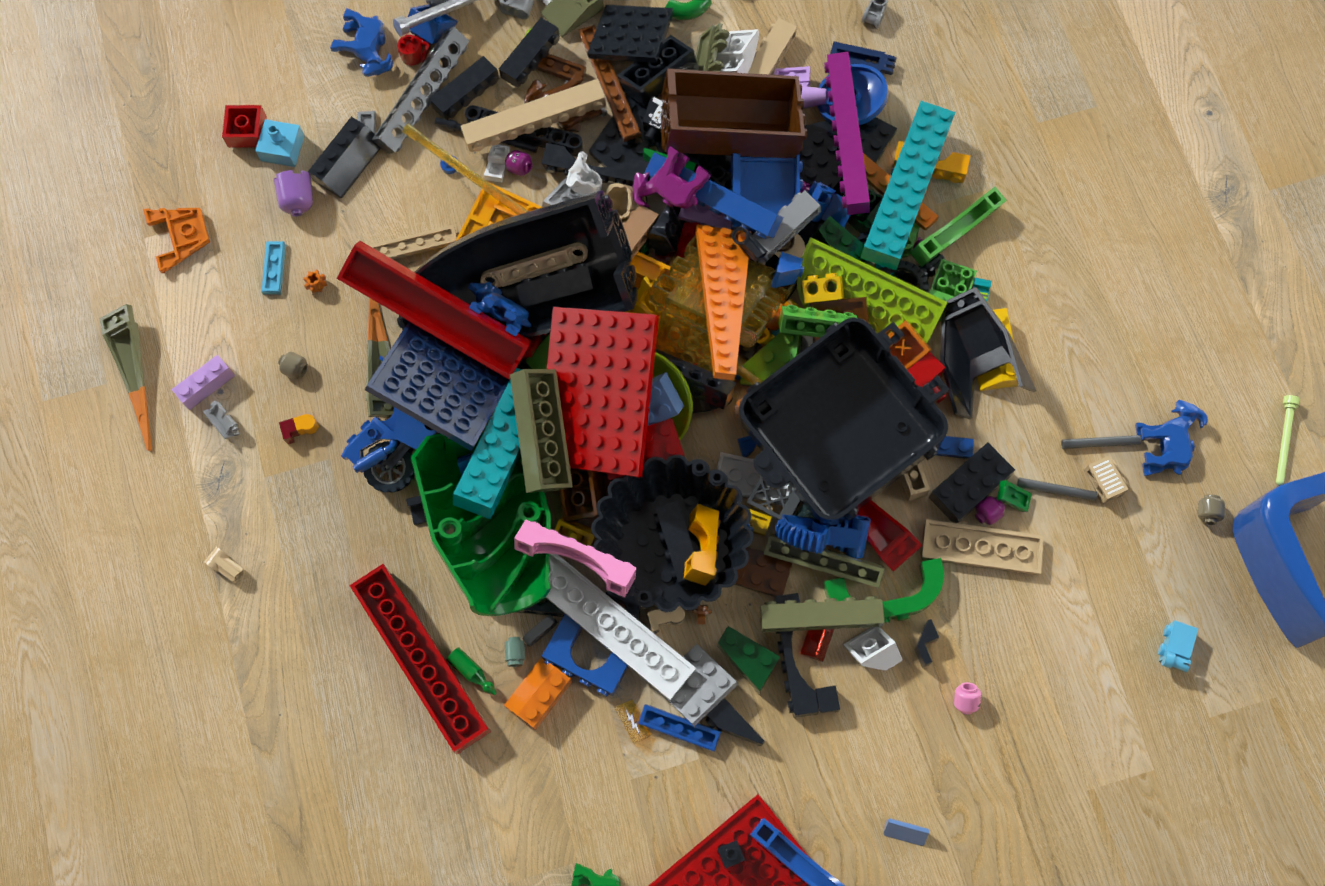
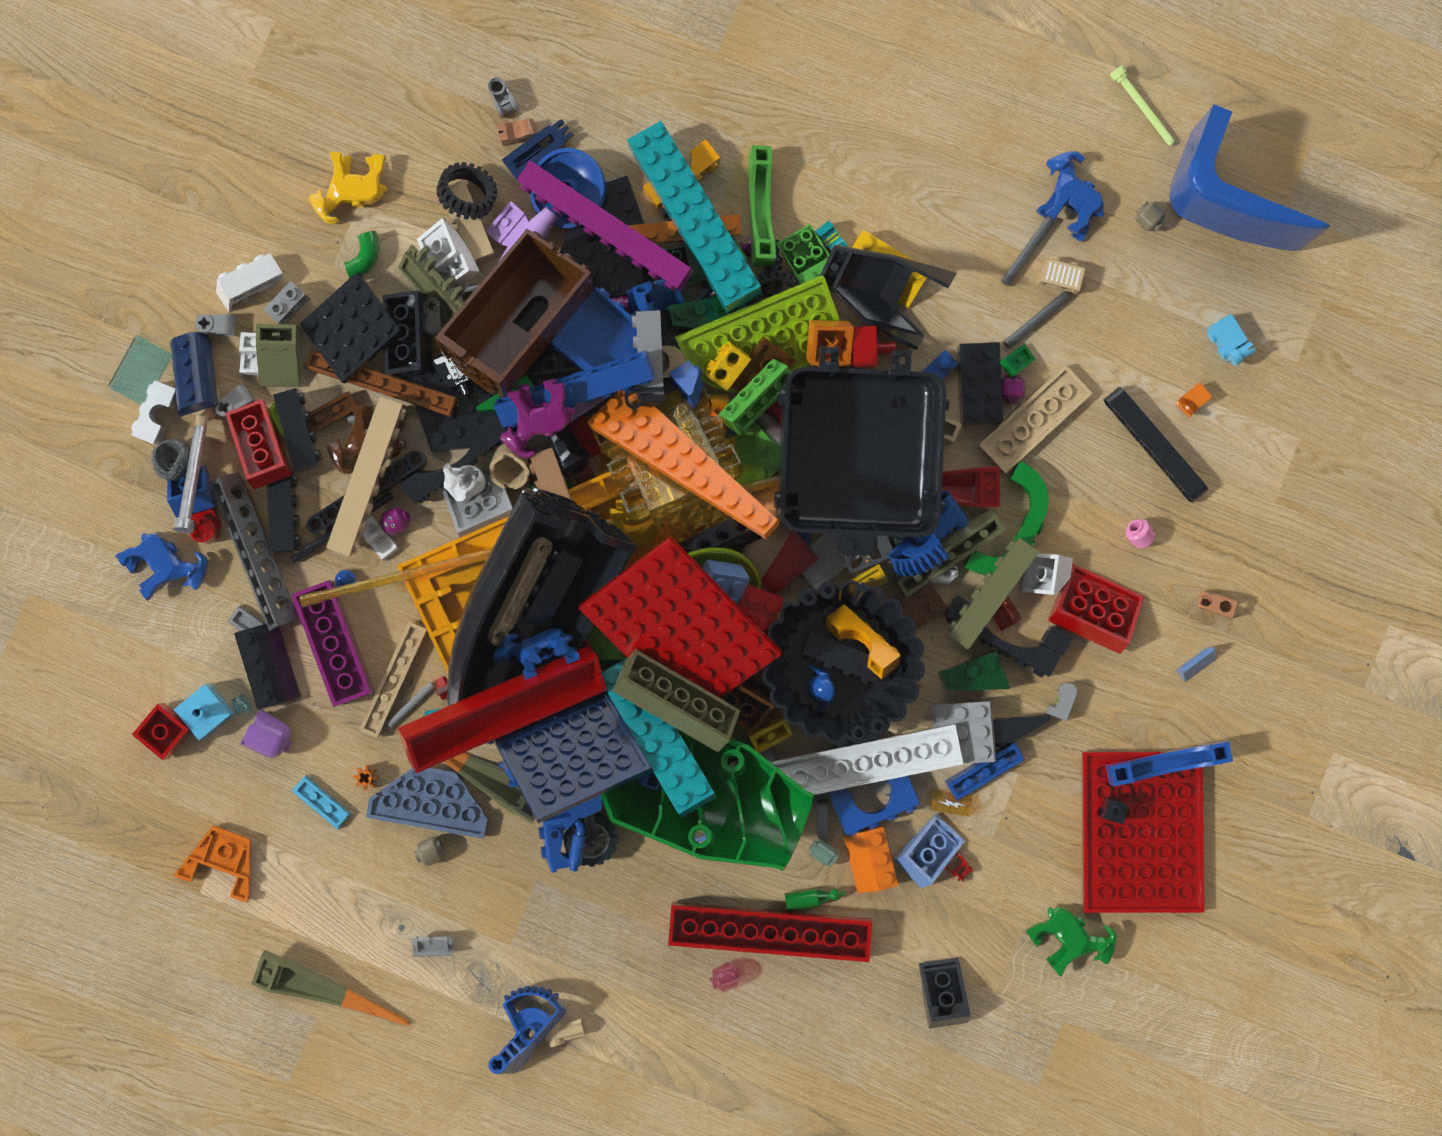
camera: 55 degrees left, 15 degrees up
(203, 382) = (385, 937): lavender brick -> none
(207, 535) = (521, 1046): none -> blue arm
(298, 426) = (489, 885): leg -> none
(304, 163) = (241, 704): none -> clear light blue hose
(331, 338) = (430, 801): none -> sand blue plate
(358, 653) = (725, 977): none -> clear pink head
(394, 189) = (334, 647): none -> magenta brick
(417, 511) = (642, 842): black panel -> none
(474, 838) = (944, 993): none -> black slope
(498, 35) = (258, 444): none -> red brick
(536, 539) = (765, 774): bright pink arch -> none
(580, 733) = (929, 851): none -> medium blue slope
(593, 771) = (963, 863): none -> red piece
(639, 544) = (820, 687): none -> blue piece
(718, 451) = (789, 563): none -> red wing
(779, 40) = (473, 175): none -> black tyre
(785, 746) = (1064, 701): none -> light grey leg
(804, 577) = (947, 577): none -> white arm
(860, 36) = (516, 131): none -> nougat leg
(879, 712) = (1097, 609): none -> red slope
(927, 636) = (1069, 522): black slope -> none
(966, 808) = (1217, 604): none -> nougat leg
(1046, 656) = (1155, 444): none -> black beam
(1106, 656) = (1194, 399): none -> orange bracket

